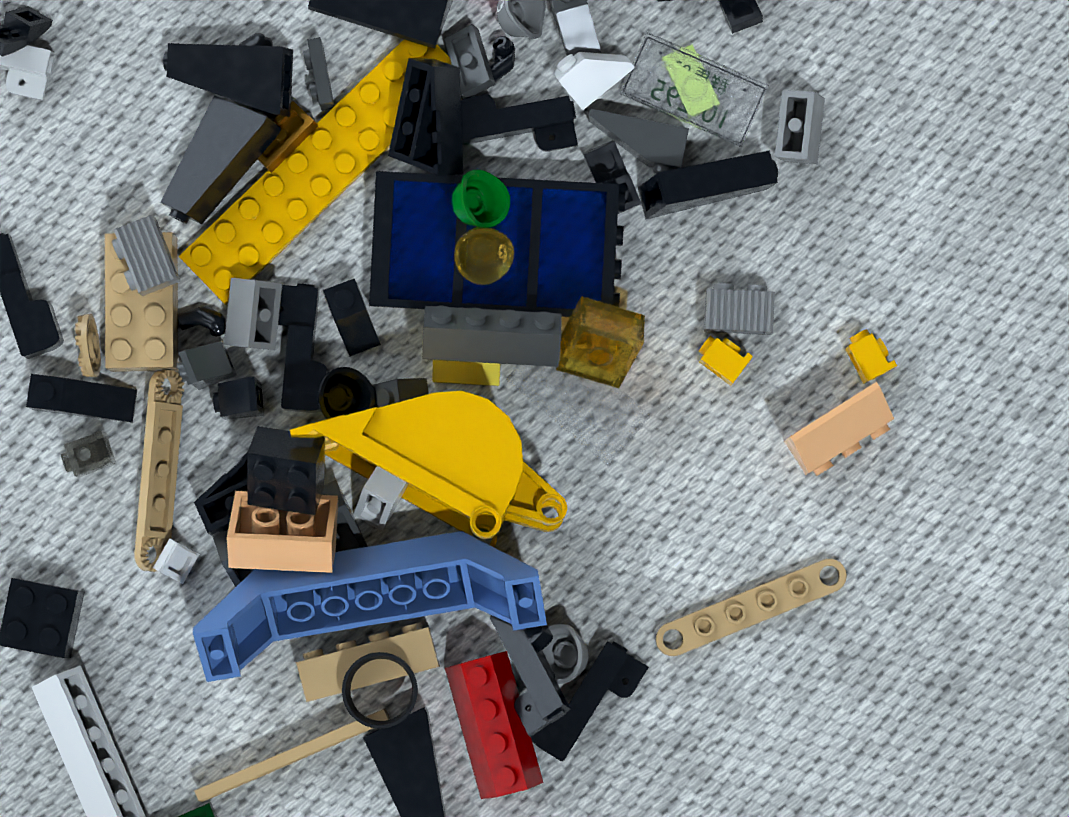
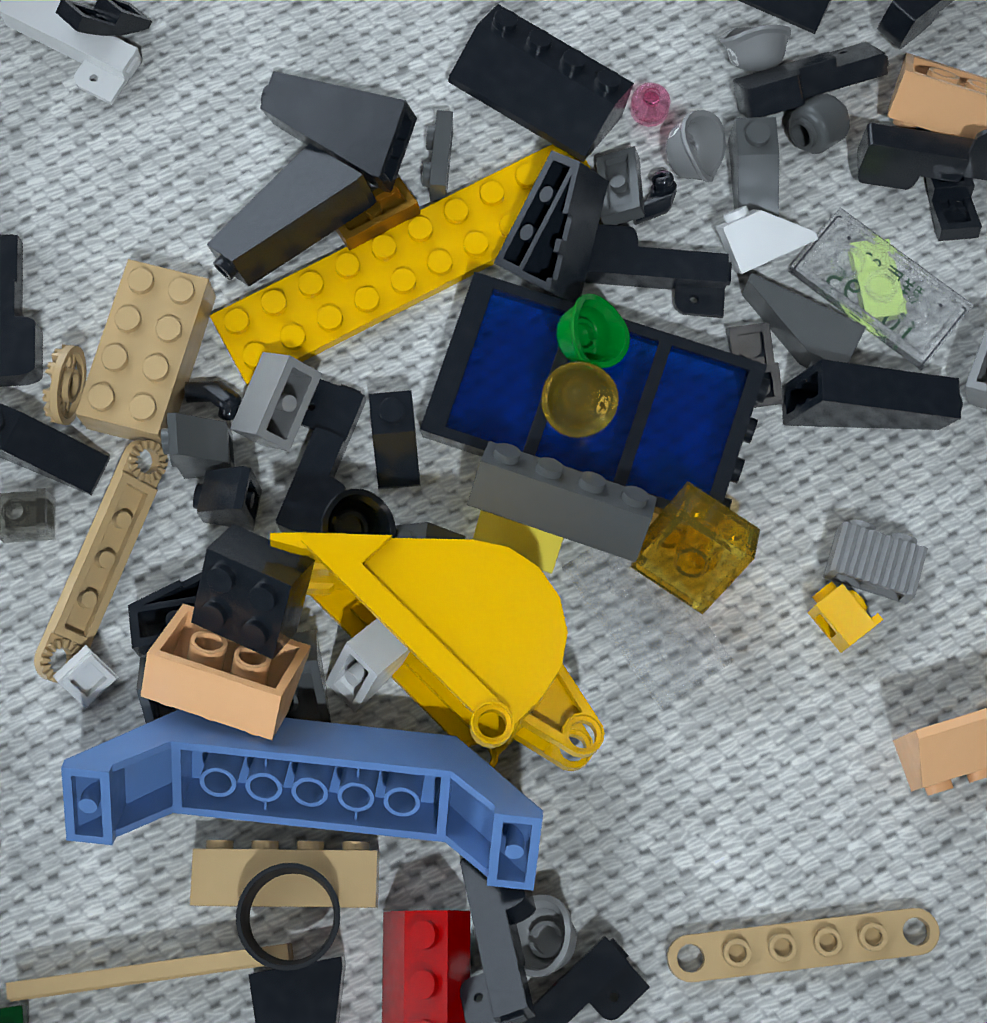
camera: 10 degrees right, 10 degrees down
(145, 255) = (165, 290): light grey brick -> none

